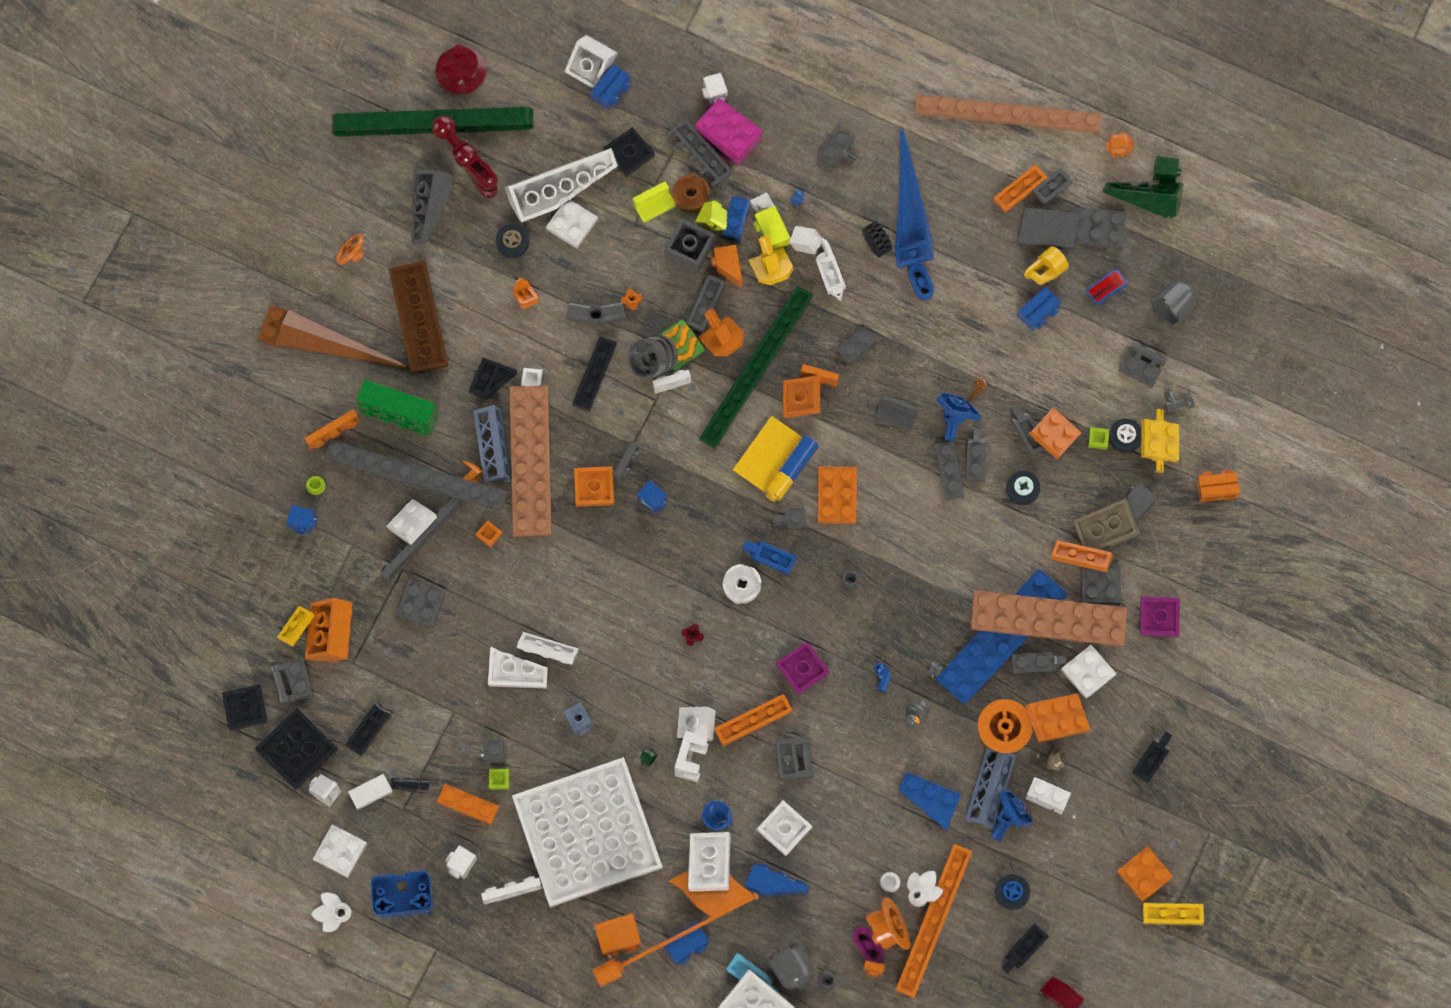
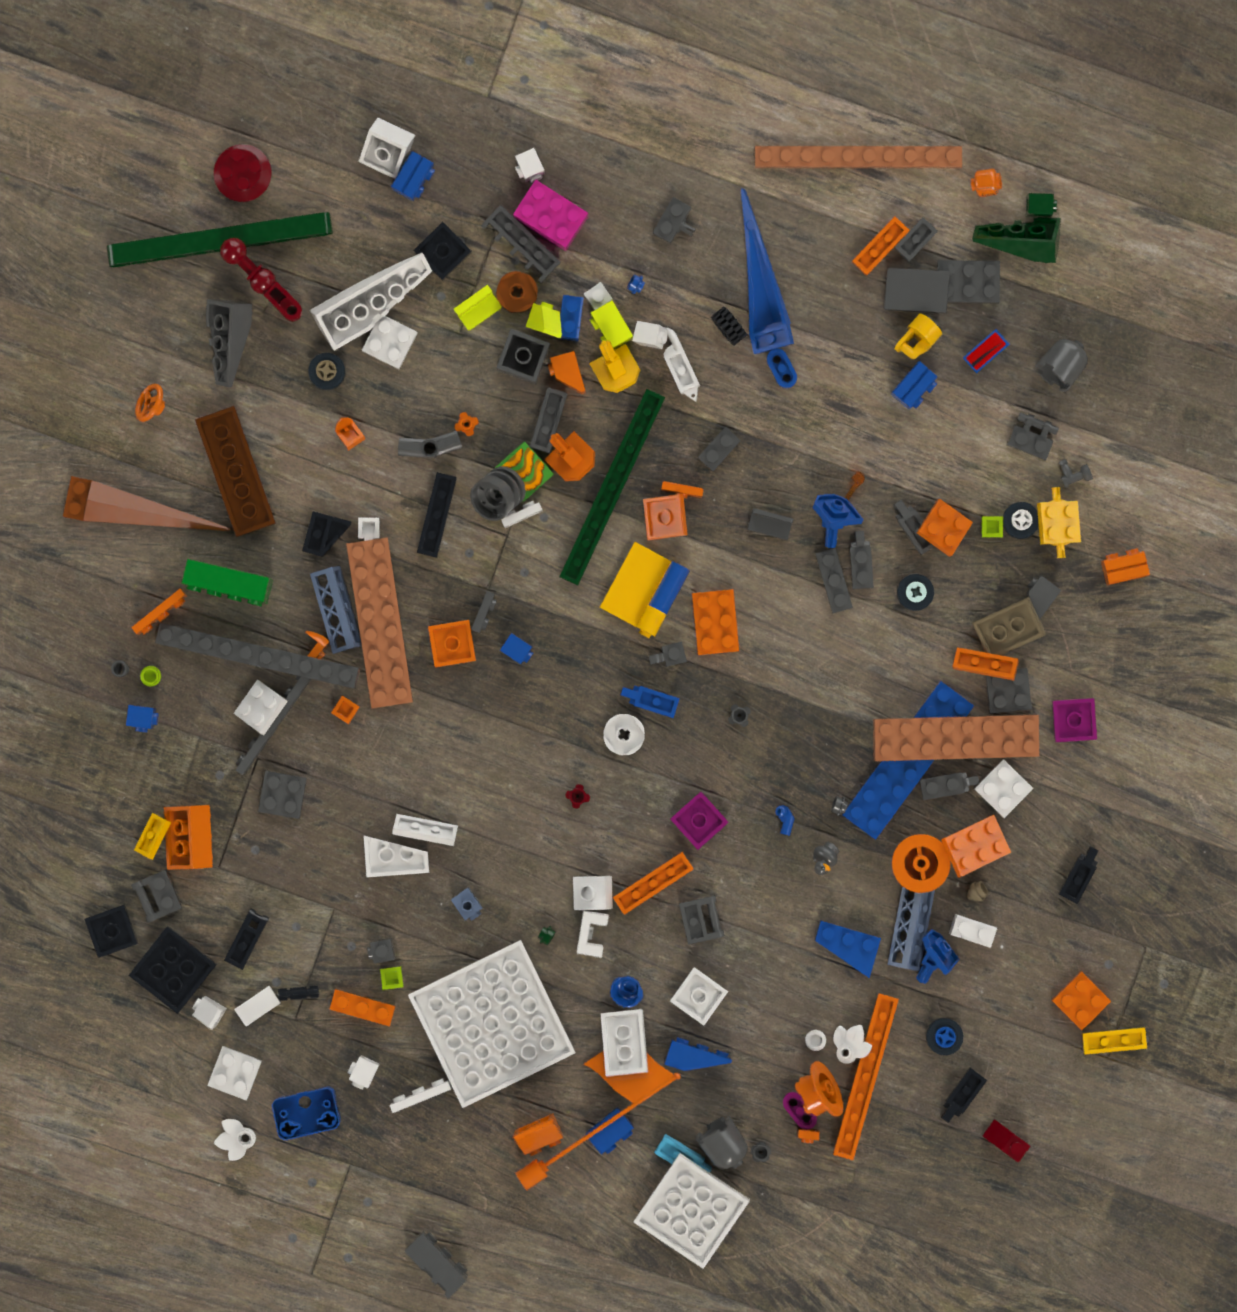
camera: 10 degrees left, 15 degrees up
(286, 475) = (117, 667): none -> dark grey hinge

